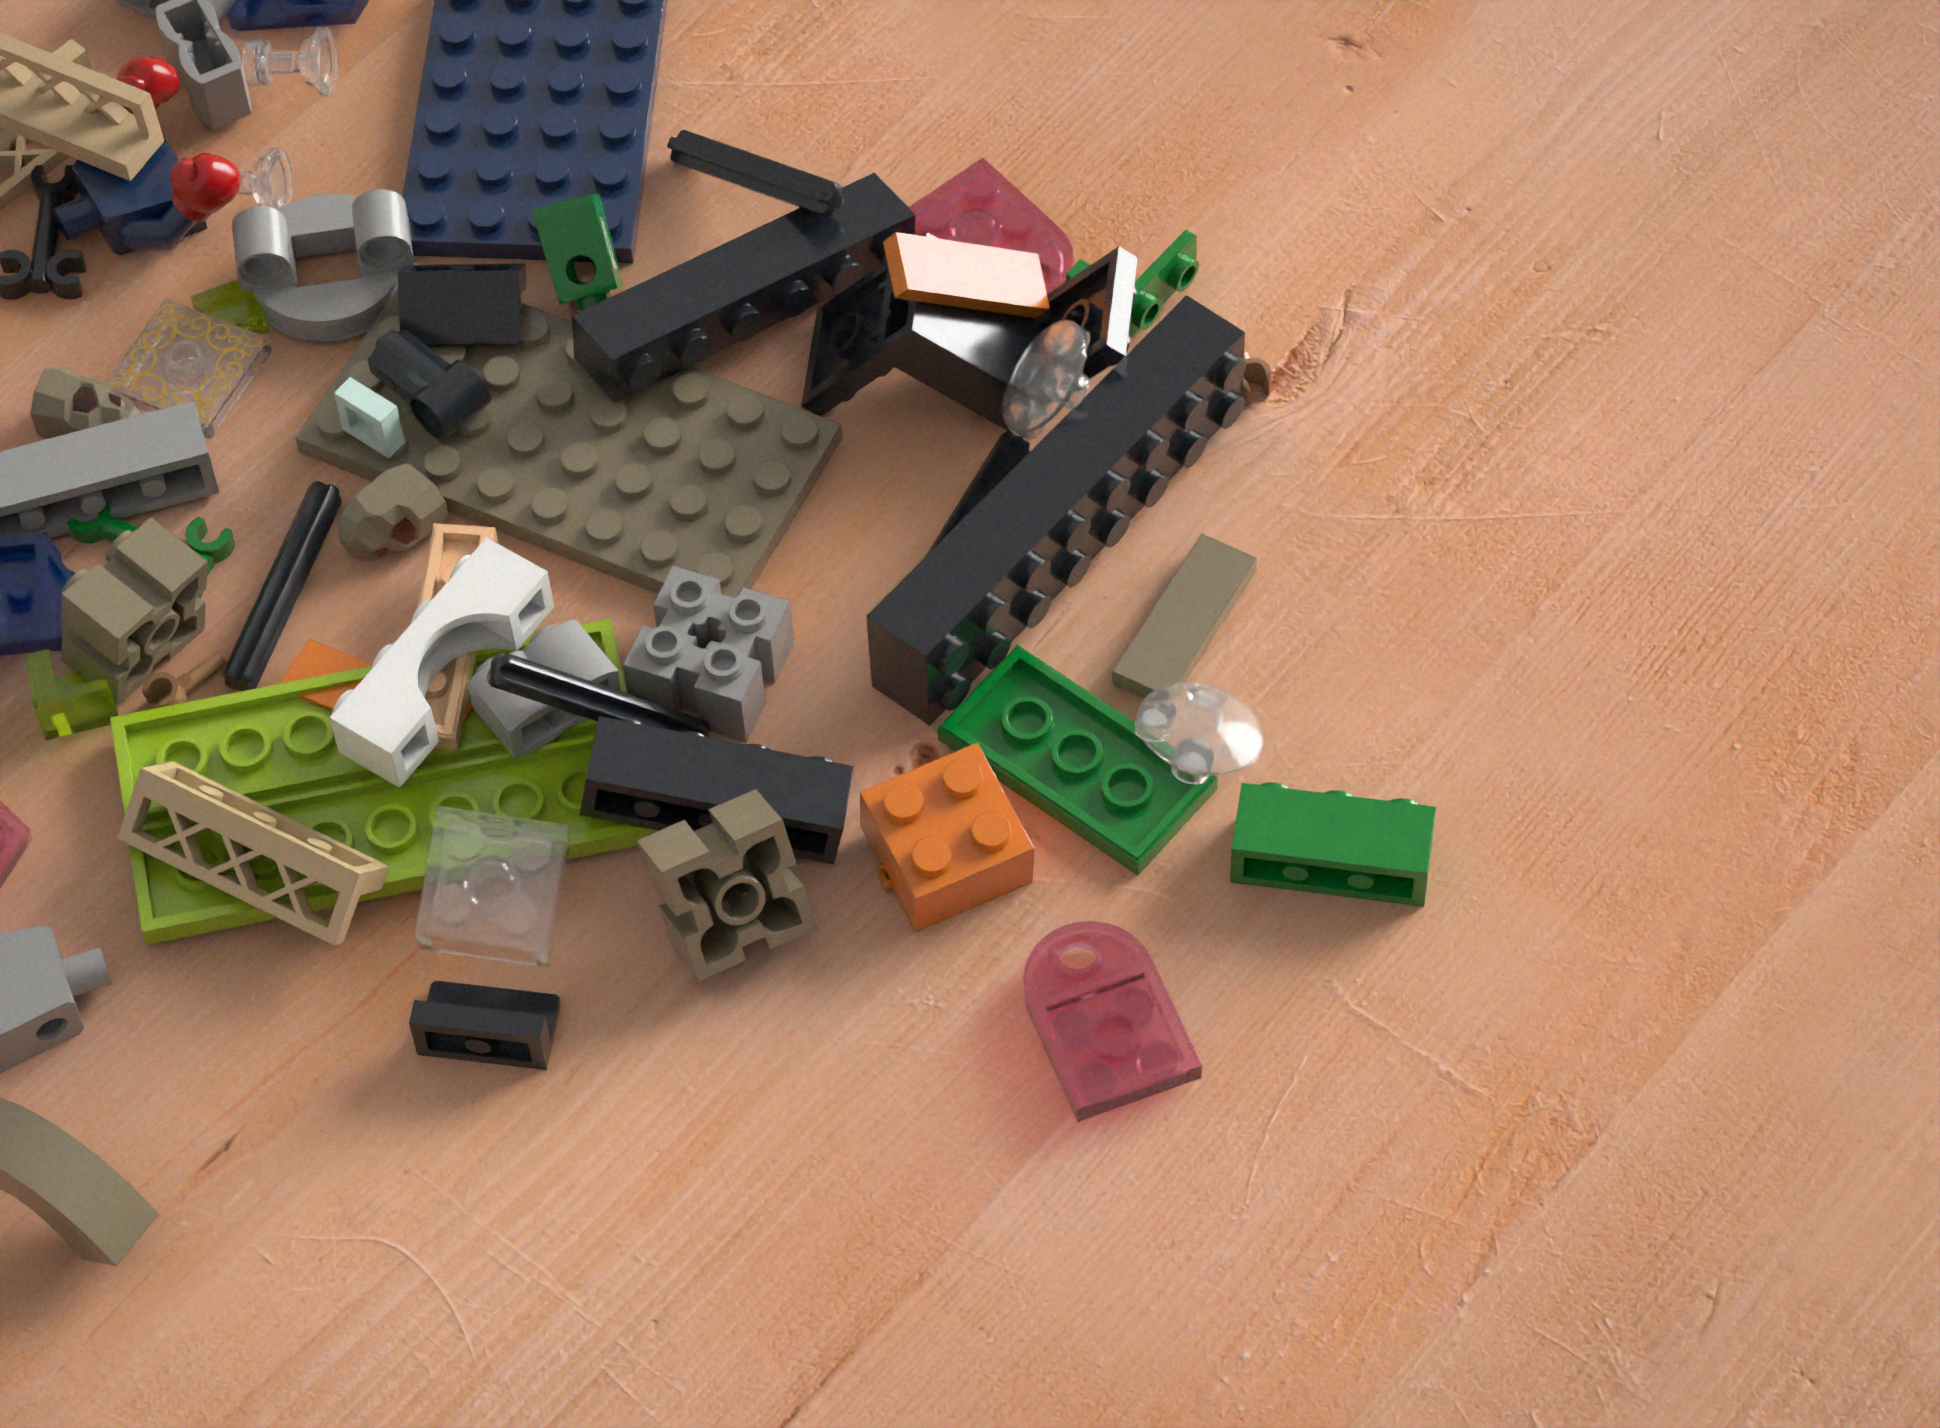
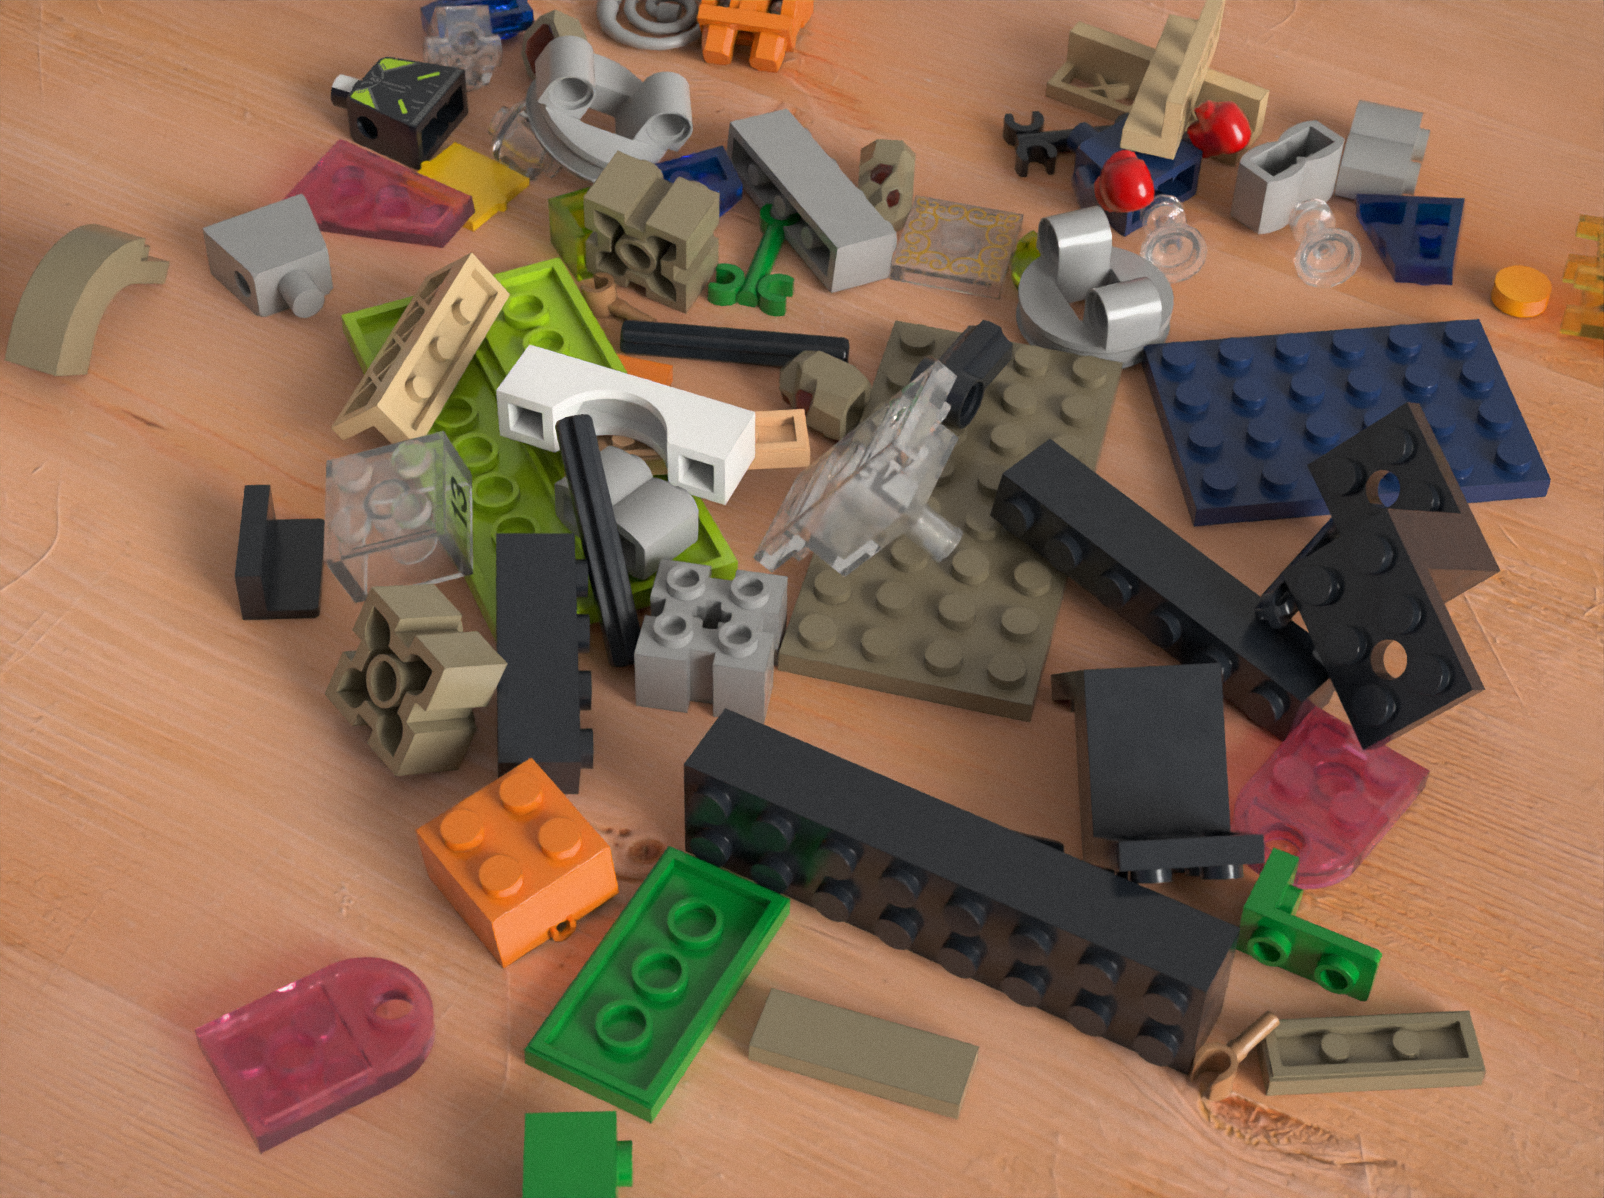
camera: 75 degrees right, 10 degrees down
(369, 417) = (906, 341): light aqua tile -> none
(462, 303) = (1069, 378): black panel -> none
(575, 230) = (1157, 448): green torso -> none
(594, 468) = (872, 485): none -> clear brick
(810, 102) = (1392, 577): none -> black bracket
(966, 275) = (1186, 717): tile -> none
(1047, 378) = (1065, 818): clear dish -> none
(1199, 730) = (704, 1078): clear dish -> none
(1253, 271) = (1371, 1053): none -> dark tan tile

